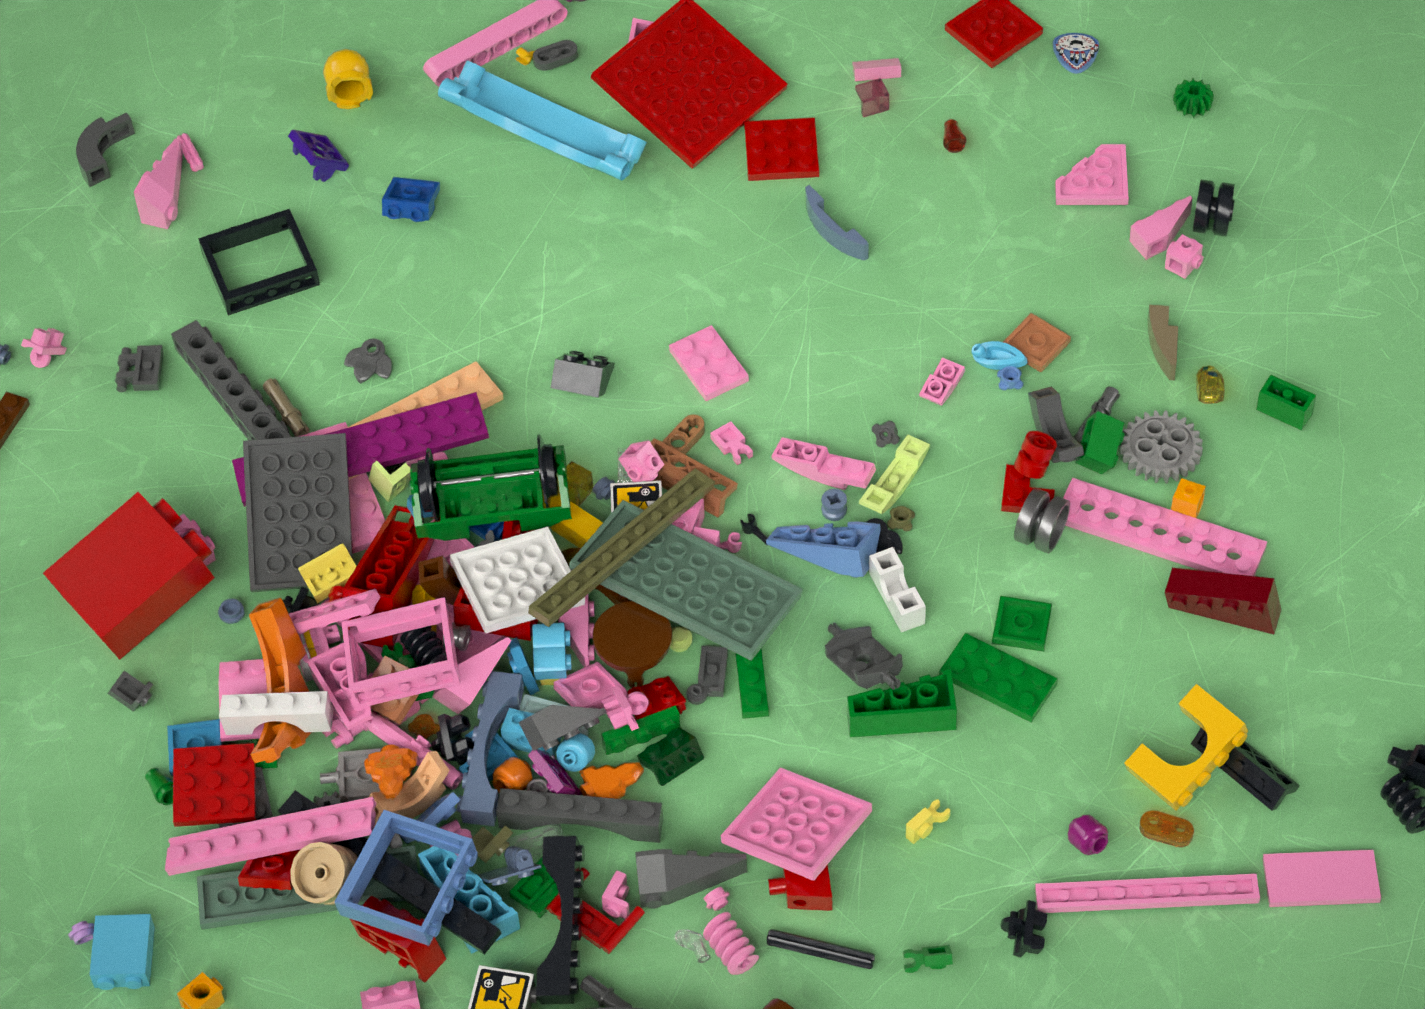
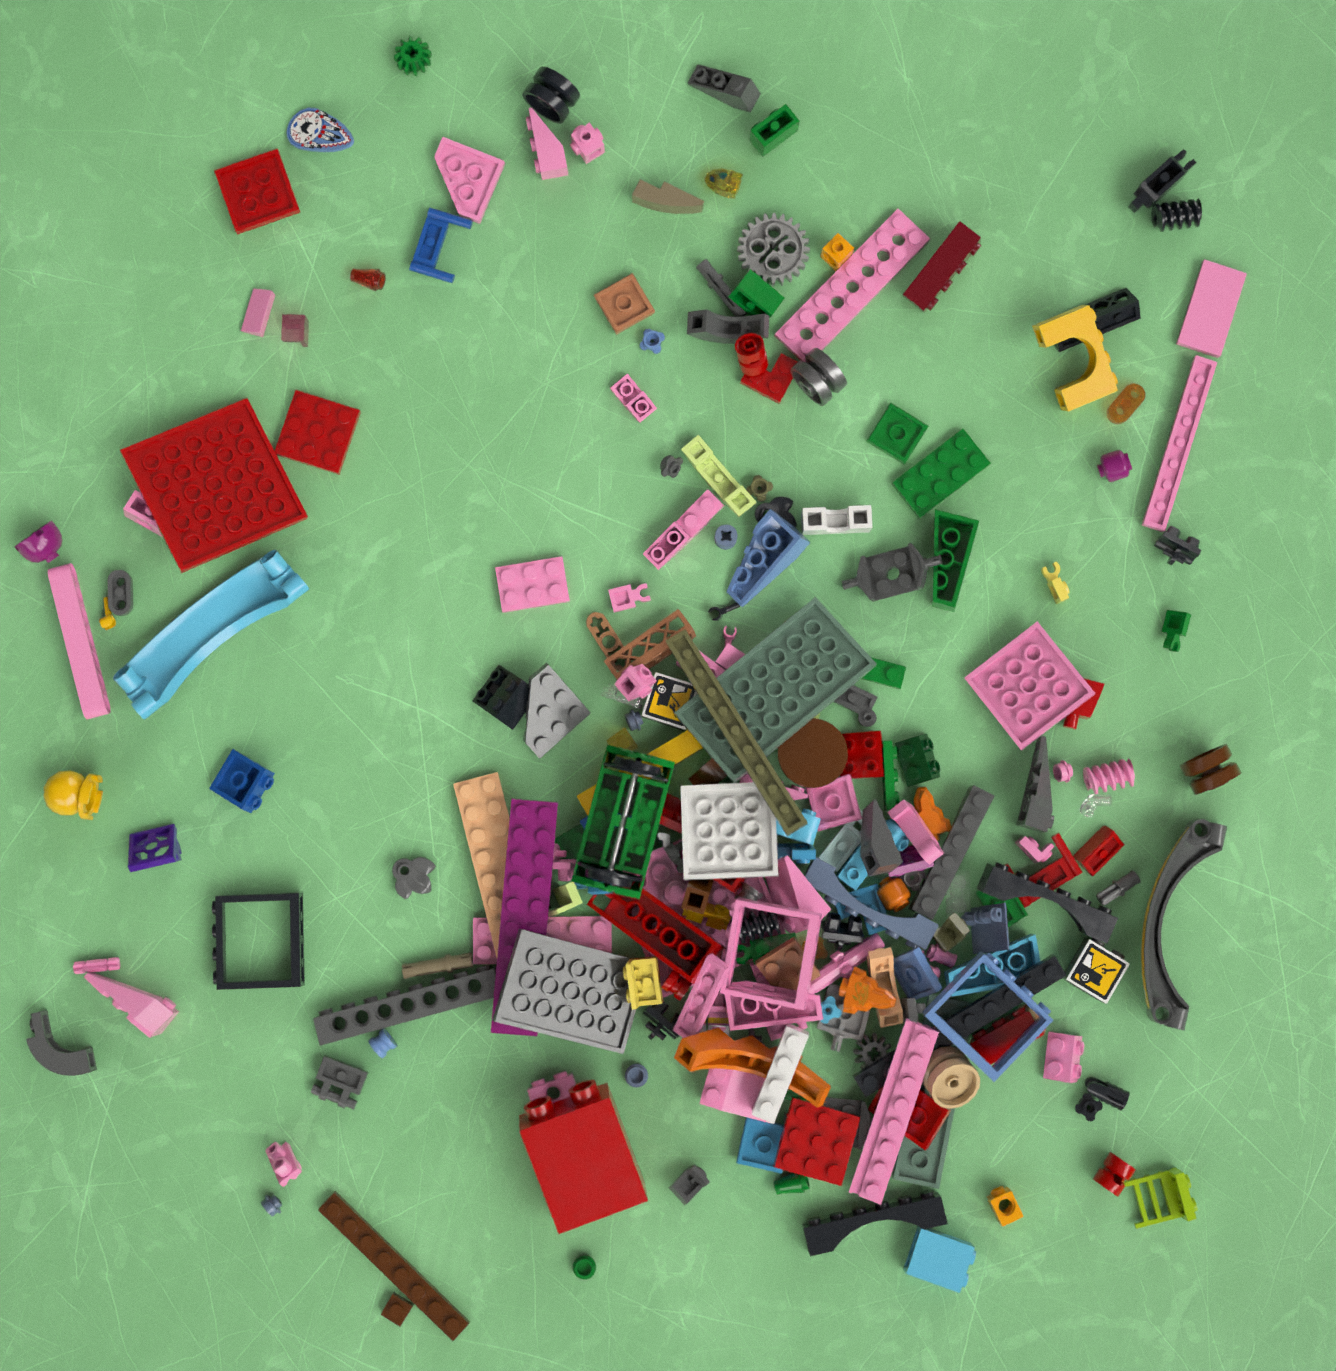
camera: 75 degrees left, 30 degrees up
(14, 630) = (584, 1267): none -> green plate
(82, 932) = (909, 1286): lavender plate -> none
(116, 836) = (826, 1234): none -> black arch
(191, 388) = (382, 1043): none -> medium blue wheel
(360, 755) = (834, 1011): none -> medium azure plate
(584, 411) = (550, 711): none -> plate
(589, 761) = (916, 831): none -> bright pink leg
(622, 709) = (885, 786): bright pink hips -> none
(641, 968) = (1098, 850): none -> red slope
(820, 949) = (1134, 708): black axle -> none
(847, 242) = (455, 414): sand blue slope -> none
(998, 355) = (627, 340): medium azure arm -> none
(1014, 172) = (432, 242): none -> blue plate
(1309, 352) = (726, 87): none -> dark grey slope

